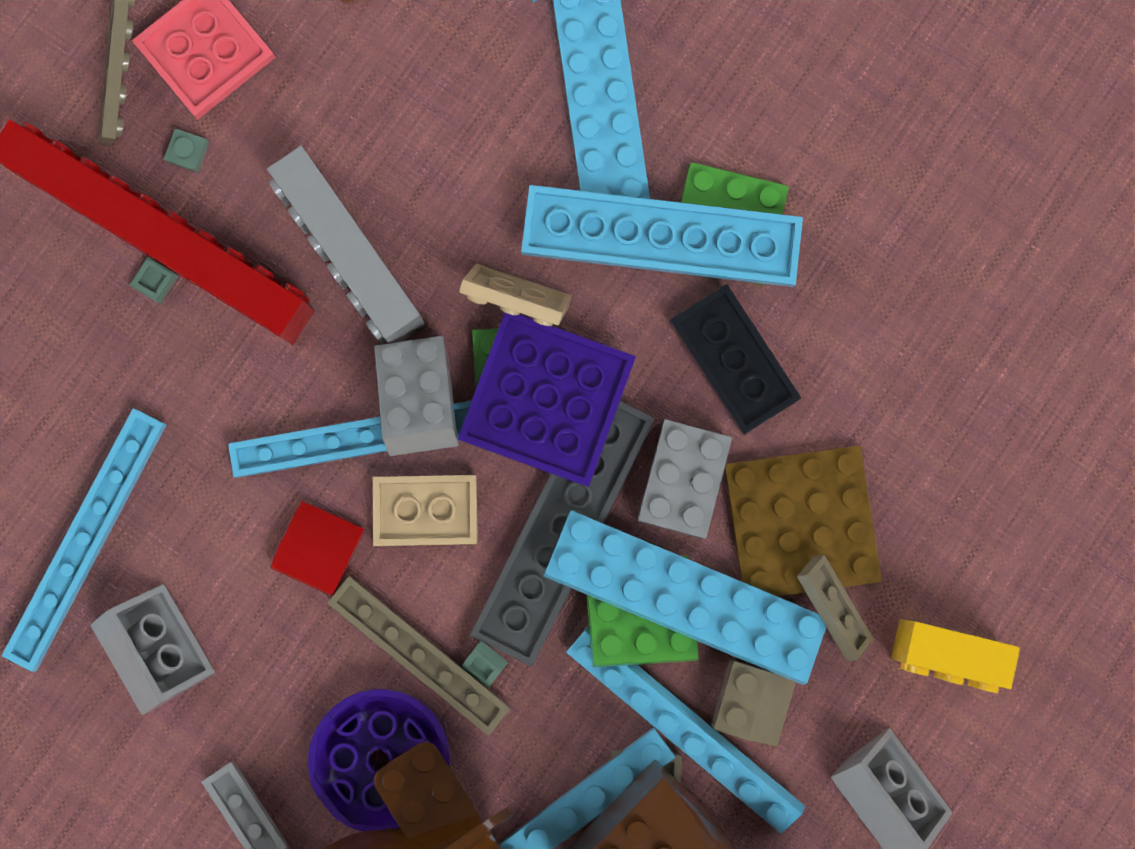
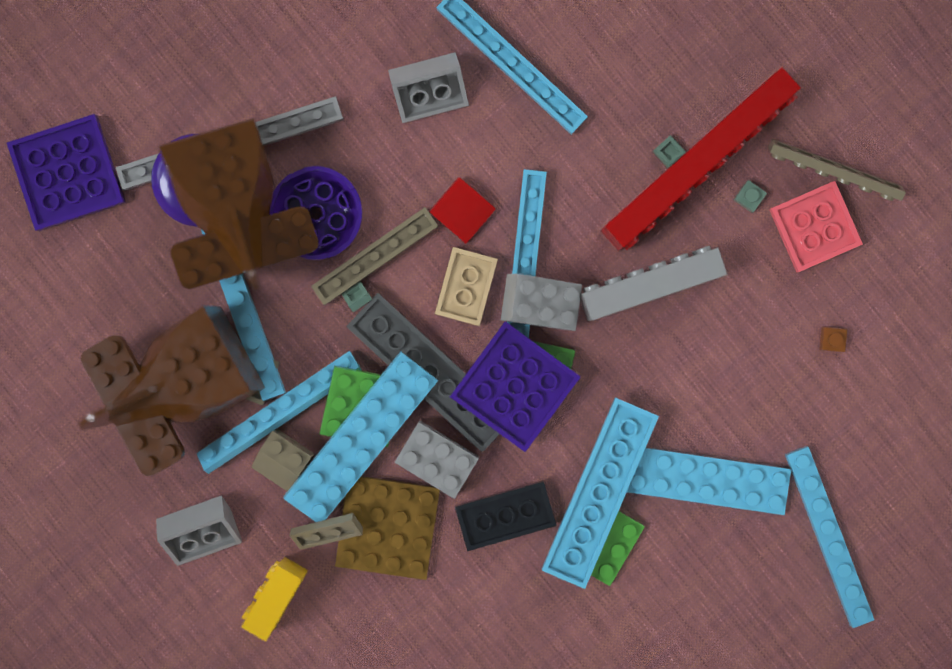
camera: 105 degrees right, 5 degrees up
(515, 295) = (588, 386): tan plate -> none

